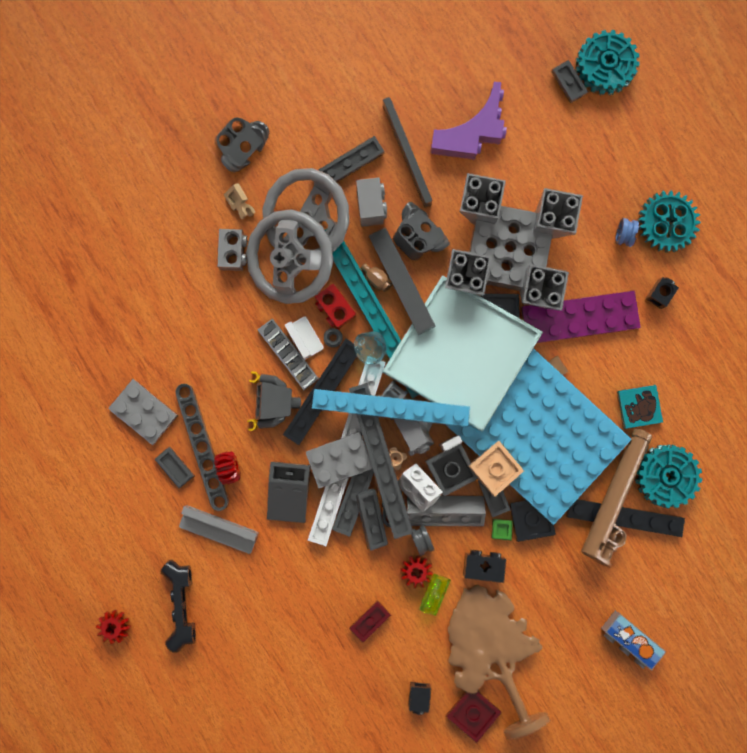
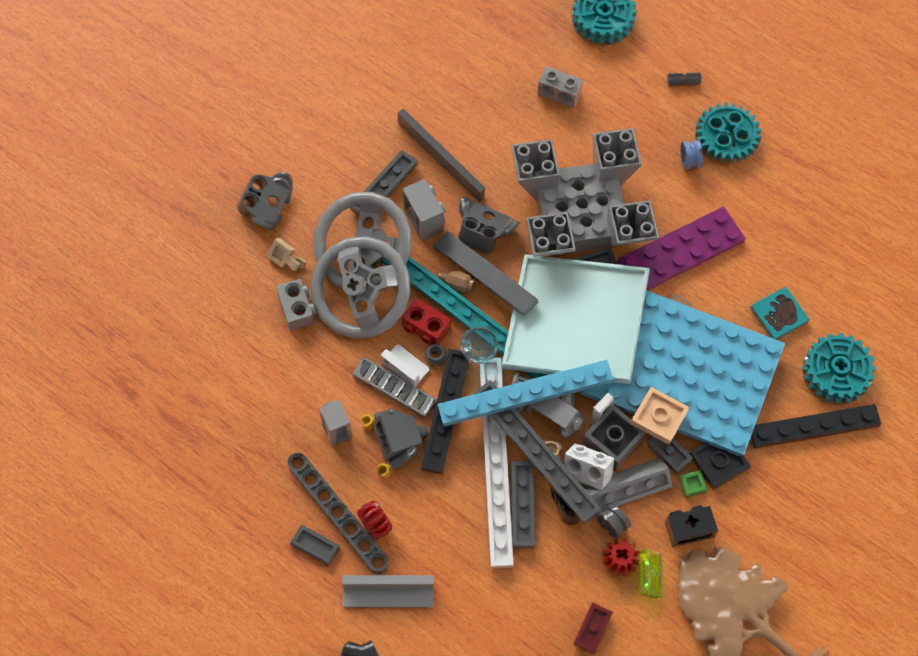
camera: 20 degrees left, 20 degrees down
(143, 412) = (259, 499): light grey plate -> none
(224, 371) = (335, 422): none -> light grey brick
(288, 491) = (450, 522): dark grey slope -> none
(339, 460) = (492, 469): light grey plate -> none
(371, 519) = (551, 518): dark grey plate -> none
(467, 139) = (496, 122): medium lavender arch -> none
(537, 123) = (560, 87): none -> light grey brick
(569, 81) = (574, 41): dark grey plate -> none
(604, 535) = (800, 444): medium nougat piece -> none
(632, 641) = (879, 544): brick -> none
(648, 151) = (679, 78): none -> dark grey piece
(656, 298) = (748, 205): black brick -> none

